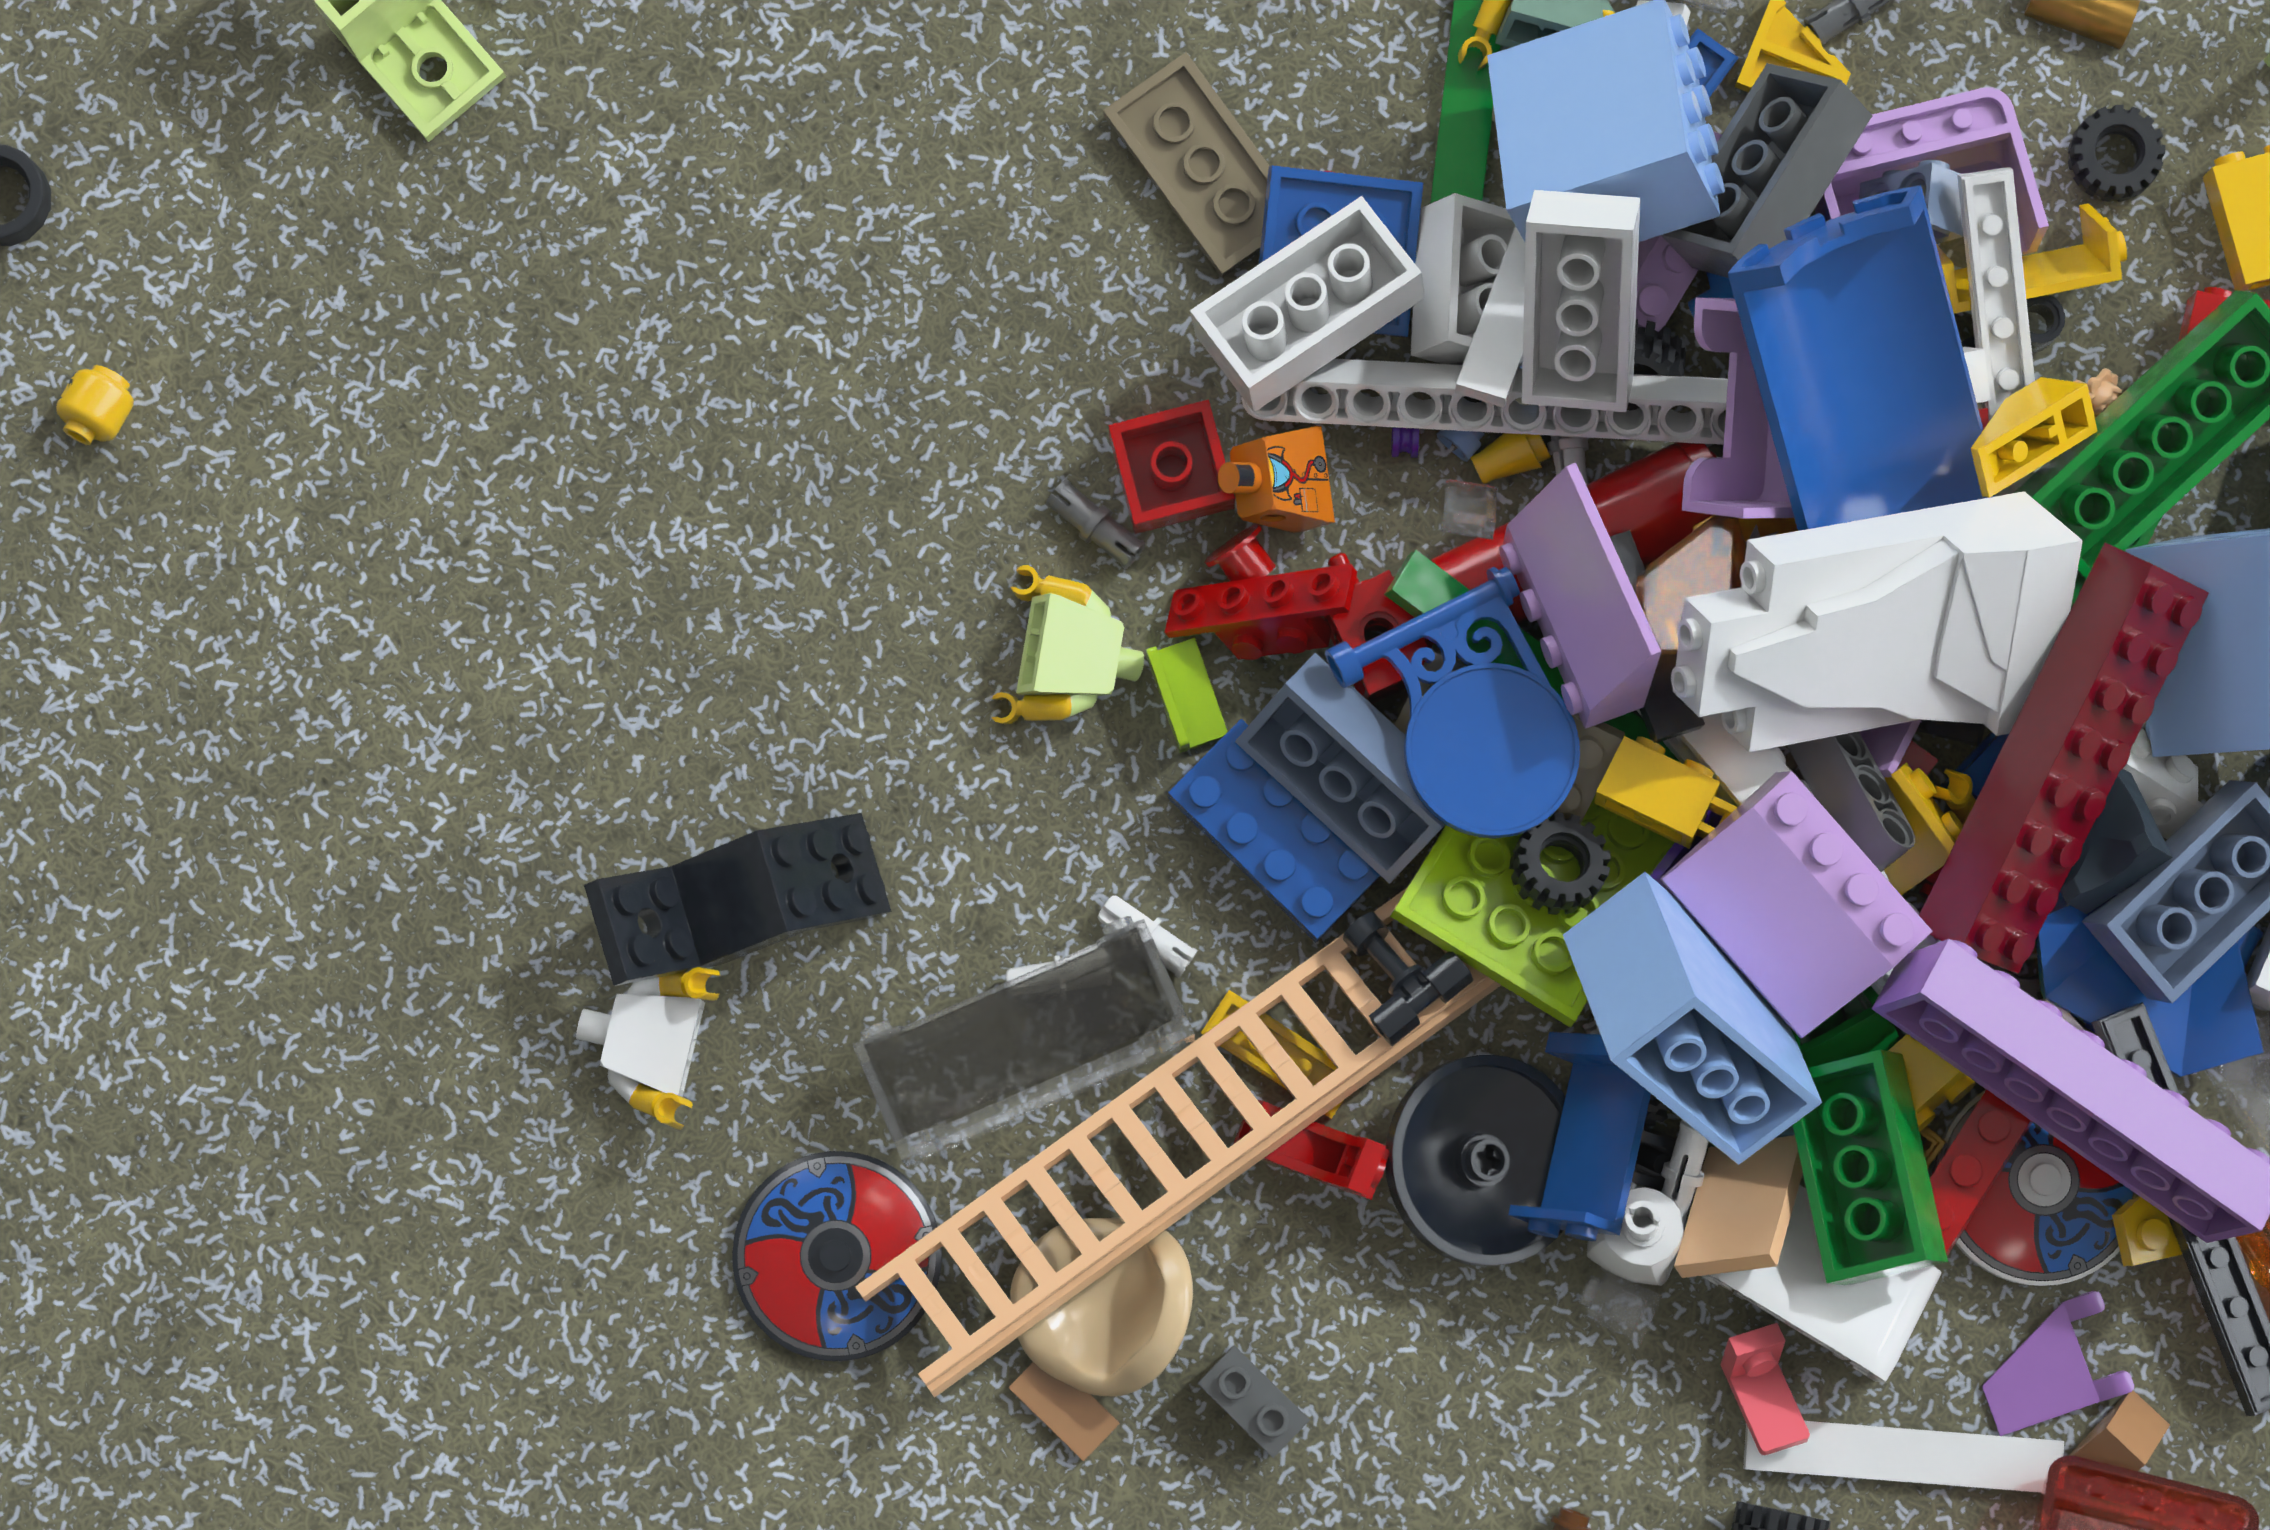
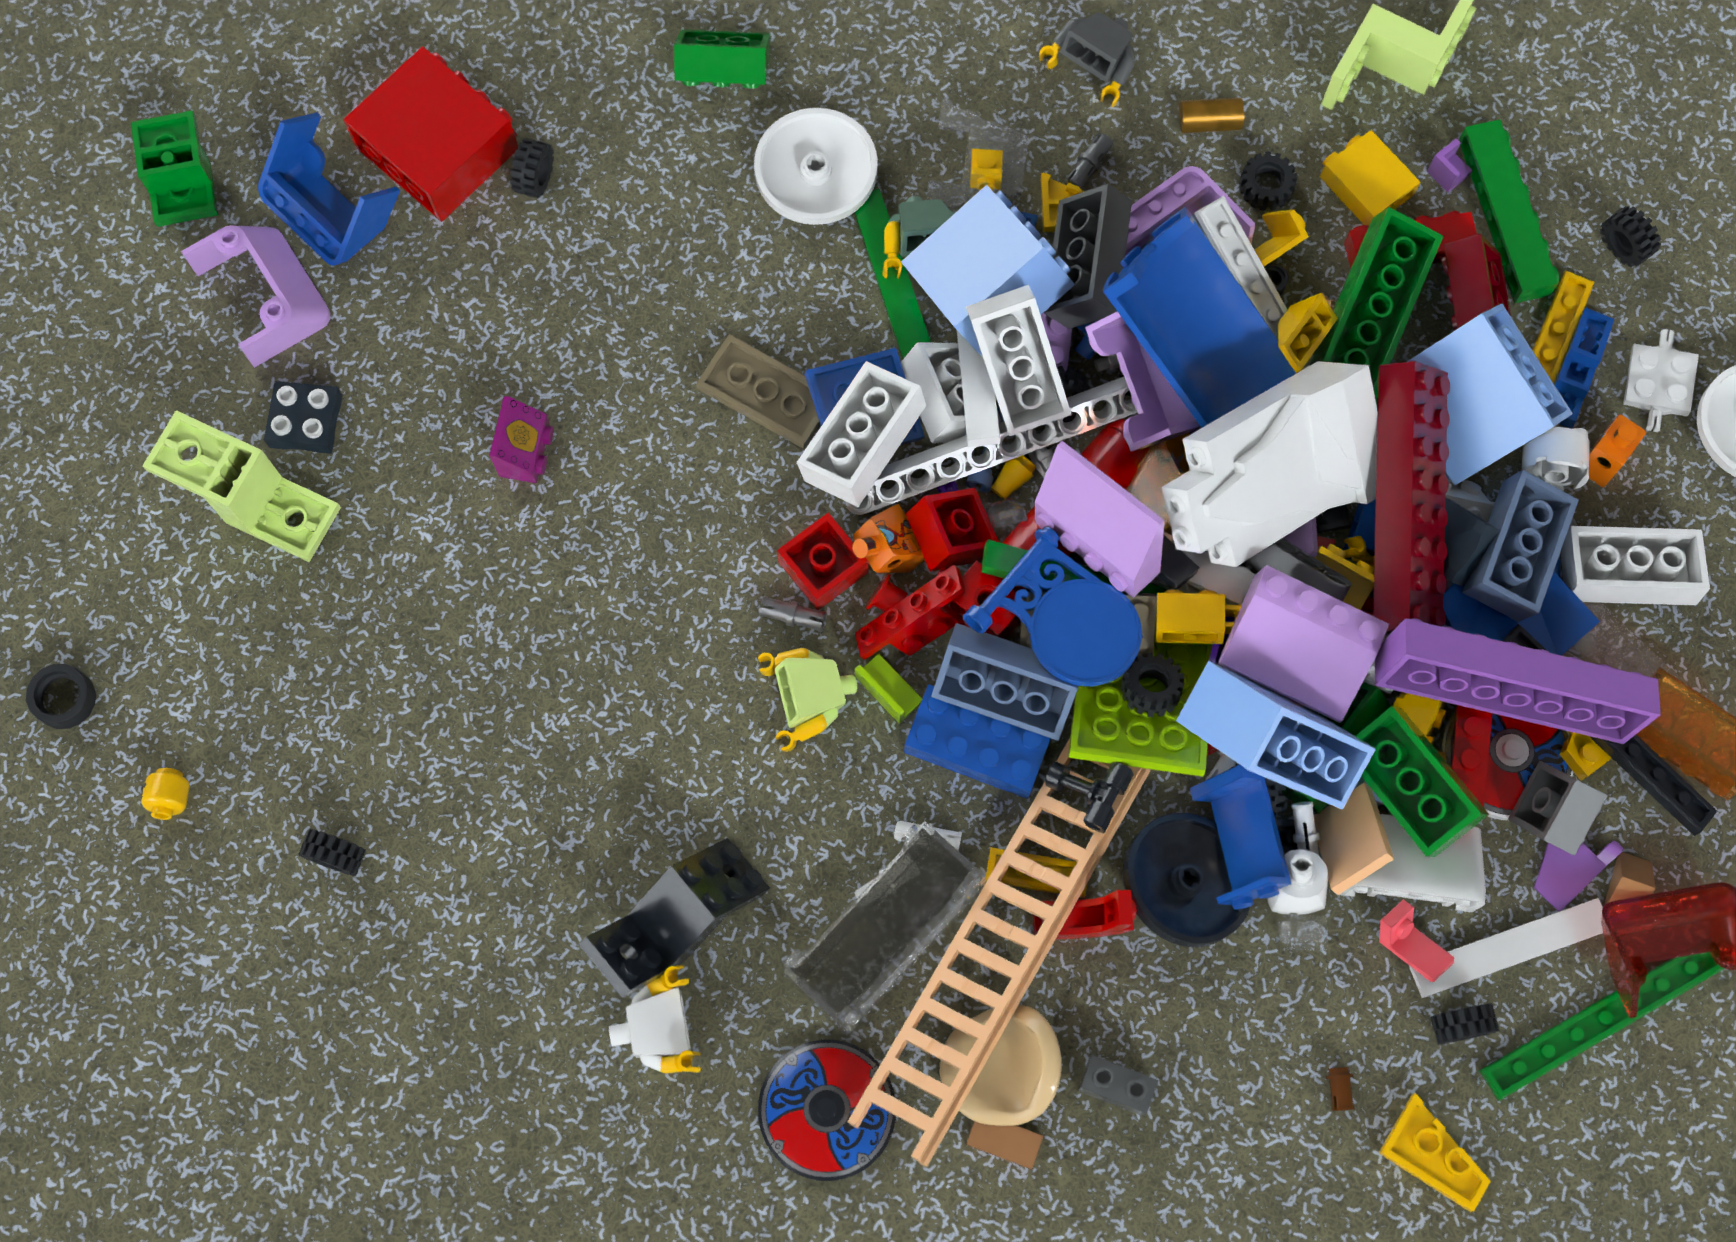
camera: 25 degrees left, 10 degrees down
(295, 595) = (332, 852): none -> black tyre
(807, 92) = (520, 441): none -> magenta slope
(1380, 500) = (951, 528): none -> red brick
(2061, 1292) = (1557, 808): none -> dark grey brick

